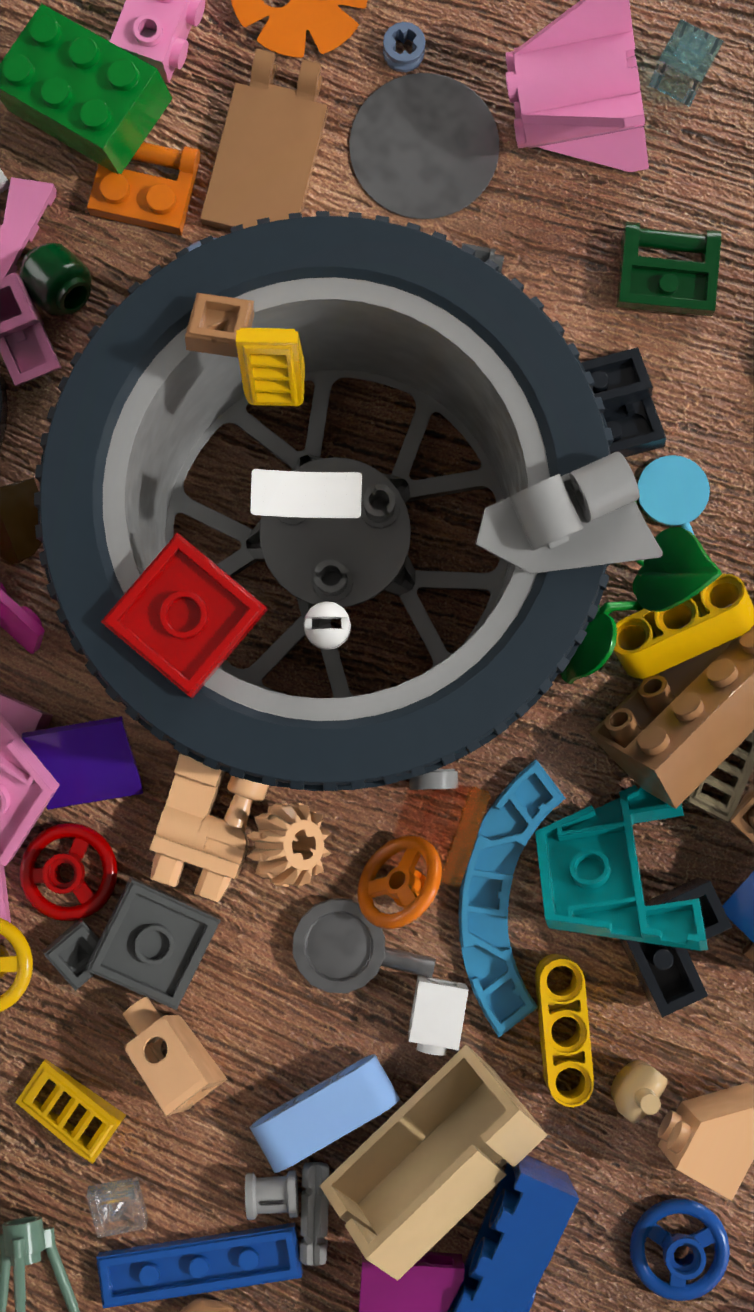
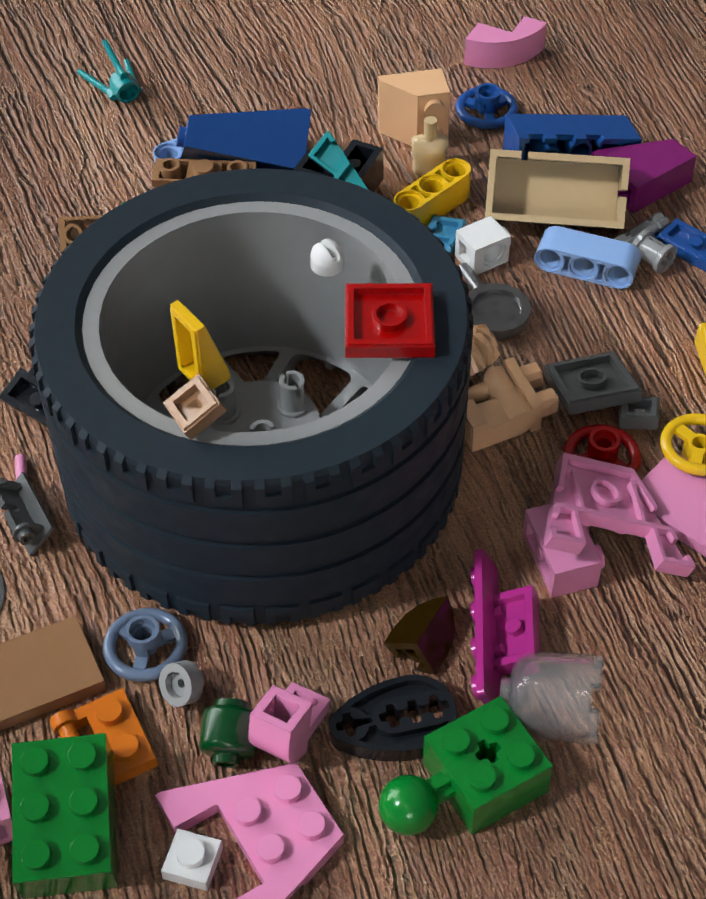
camera: 130 degrees left, 35 degrees down
(87, 760) = (528, 476): dark purple piece -> none
(131, 271) = (181, 683): none -> light grey tile
(185, 1071) = (640, 332): light nougat torso -> none
(306, 494) = (258, 315): white sticker -> none
(571, 521) = (161, 199): light grey panel -> none

